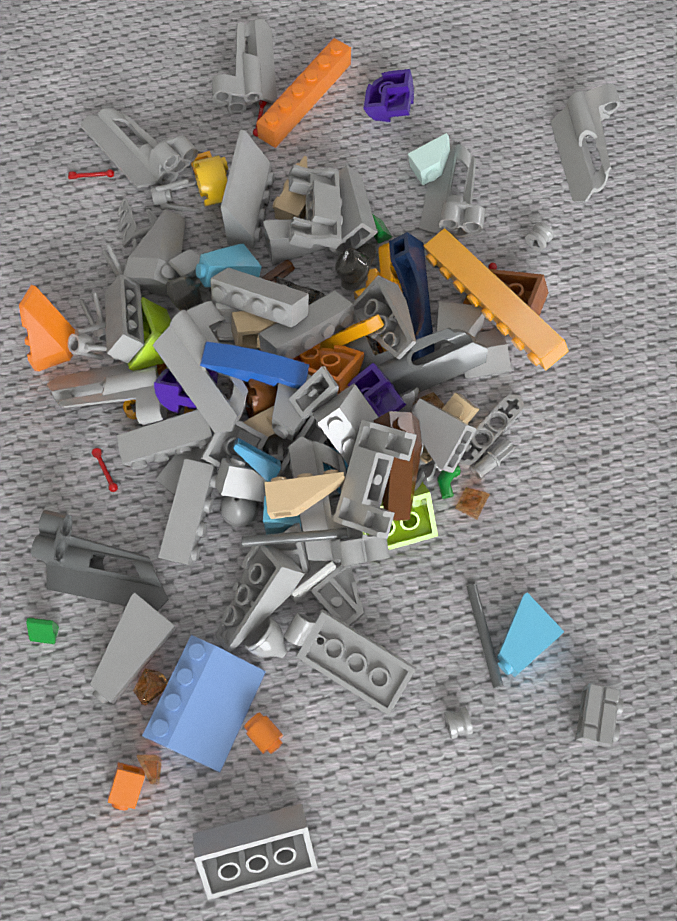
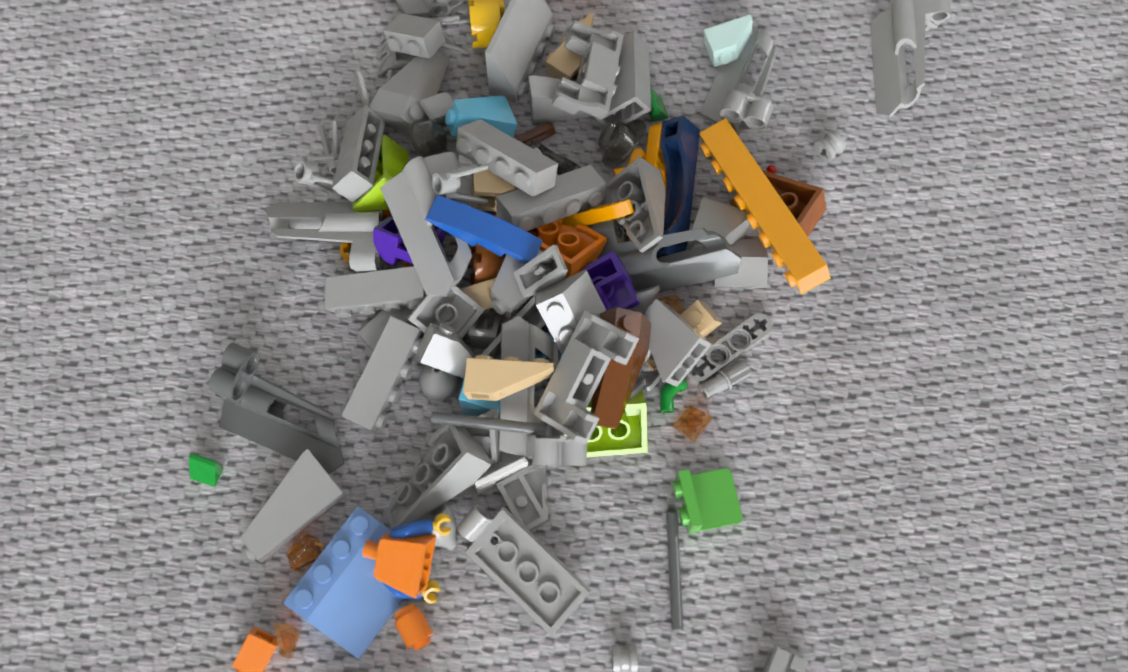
camera: 10 degrees right, 0 degrees up
(46, 331) = (273, 151): orange wedge -> none
(96, 452) = (302, 292): red hinge -> none
(150, 203) = (414, 35): none -> light grey brick
(214, 327) = (449, 181): none -> light grey plant
(246, 672) = (406, 558): none -> orange torso
(259, 460) = (471, 335): dark azure slope -> none
(500, 567) = (707, 500): none -> bright green bracket
(527, 636) = (720, 581): medium azure slope -> none

